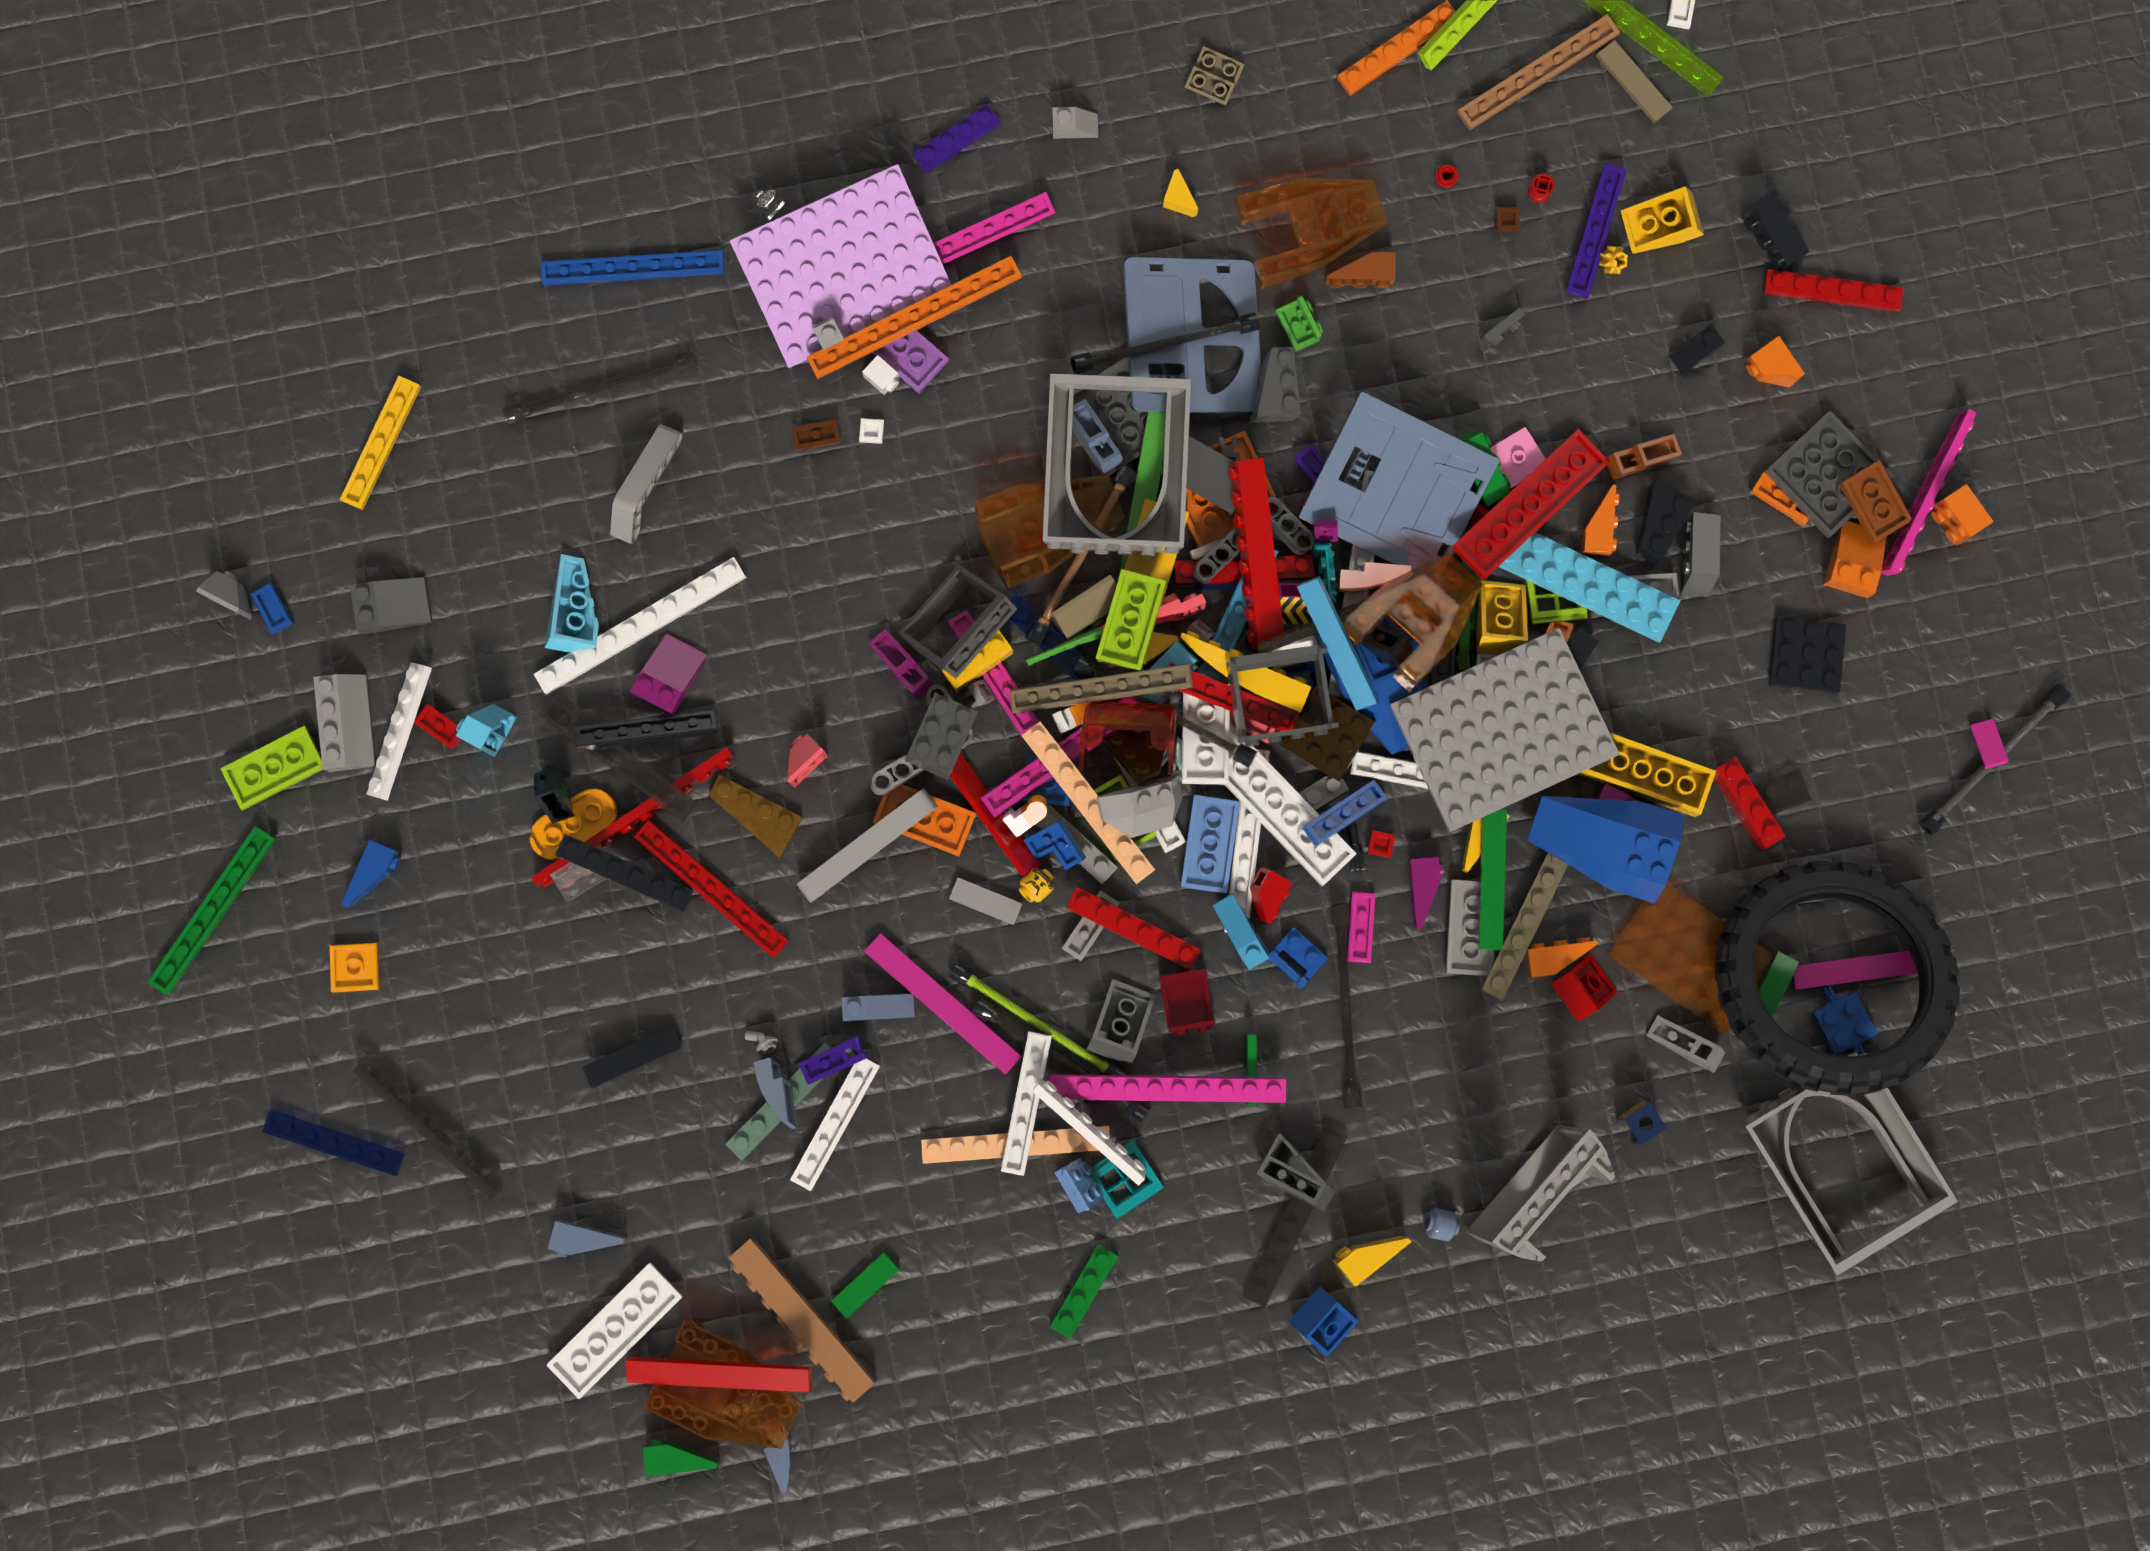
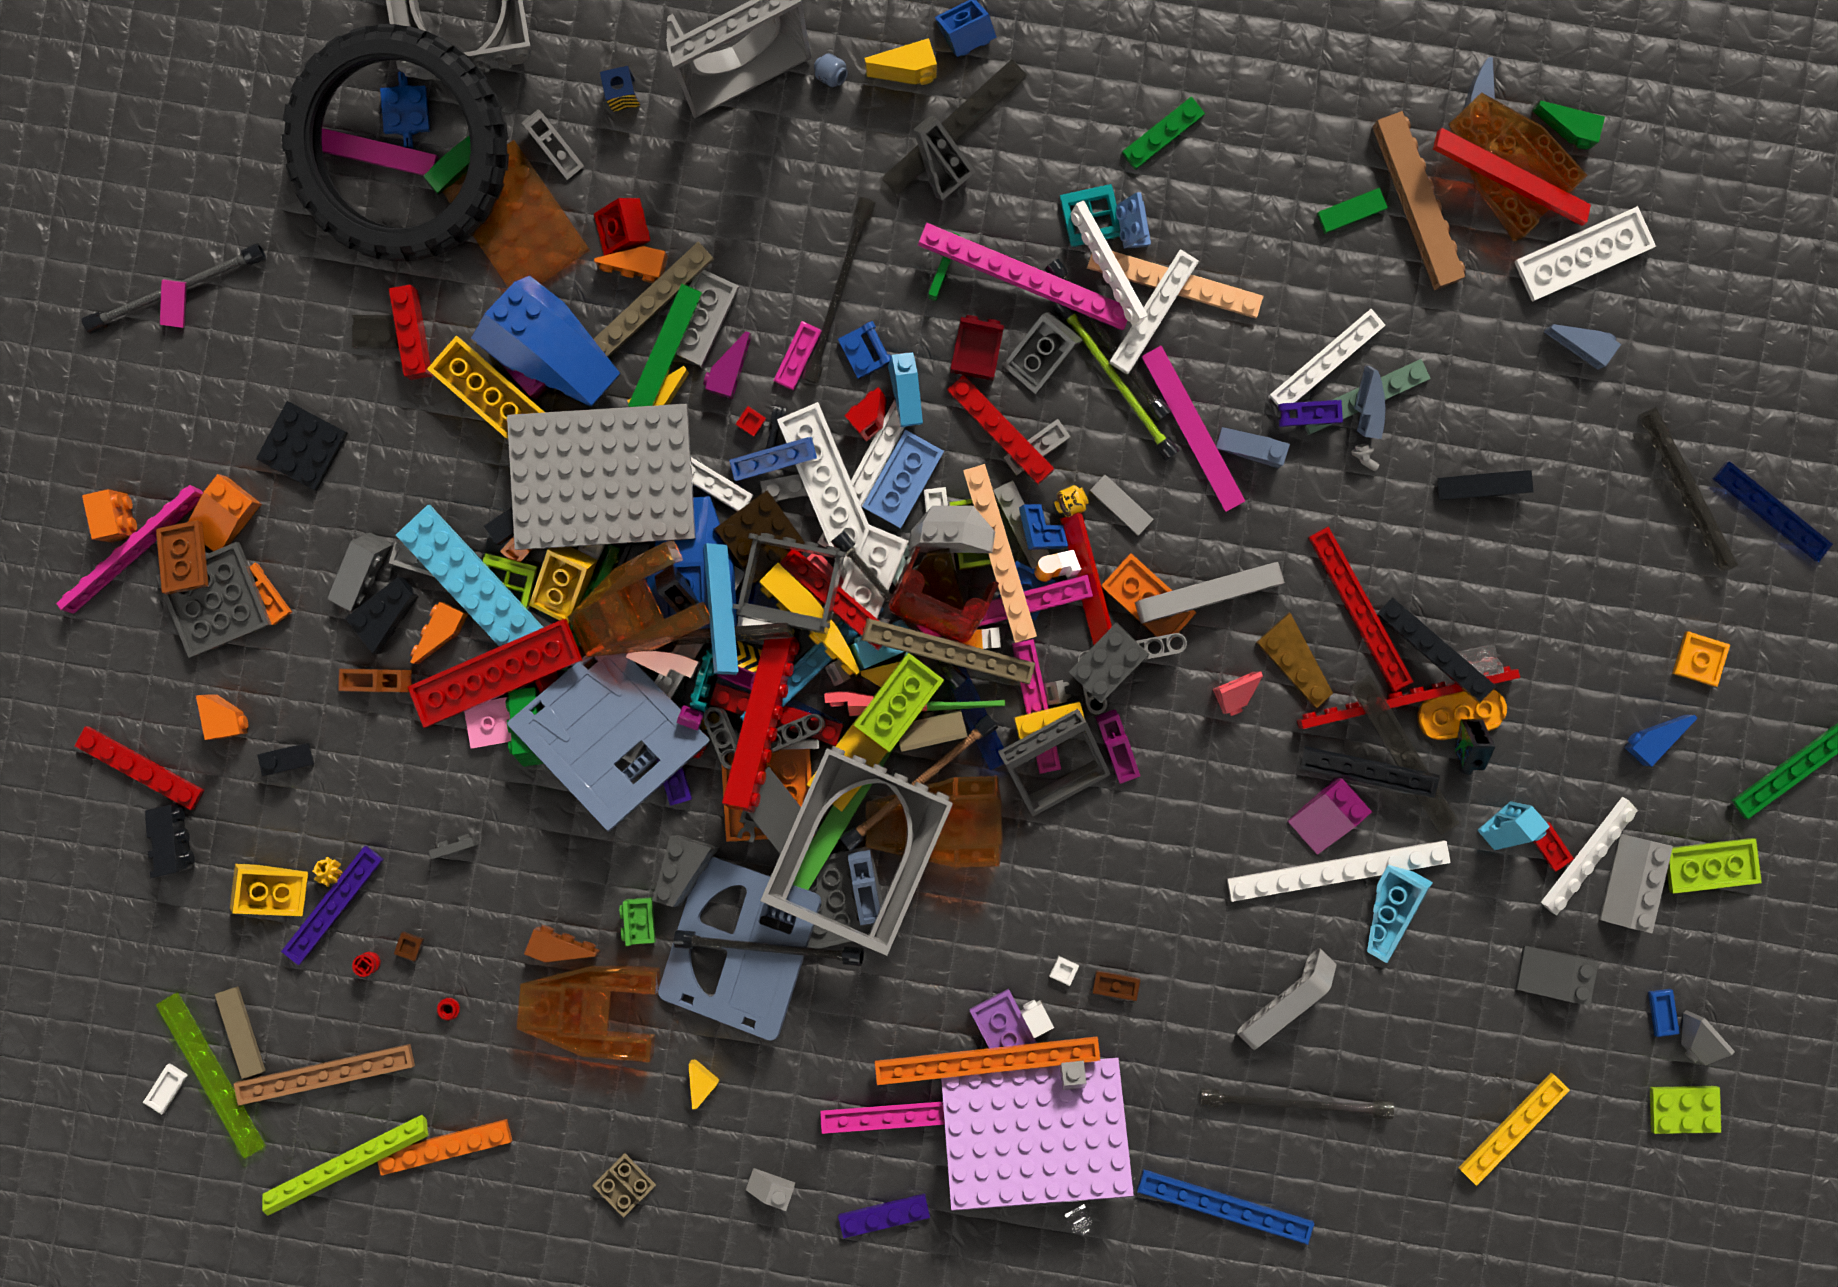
camera: 155 degrees left, 5 degrees up
(218, 523) = (1685, 1109): none -> lime plate

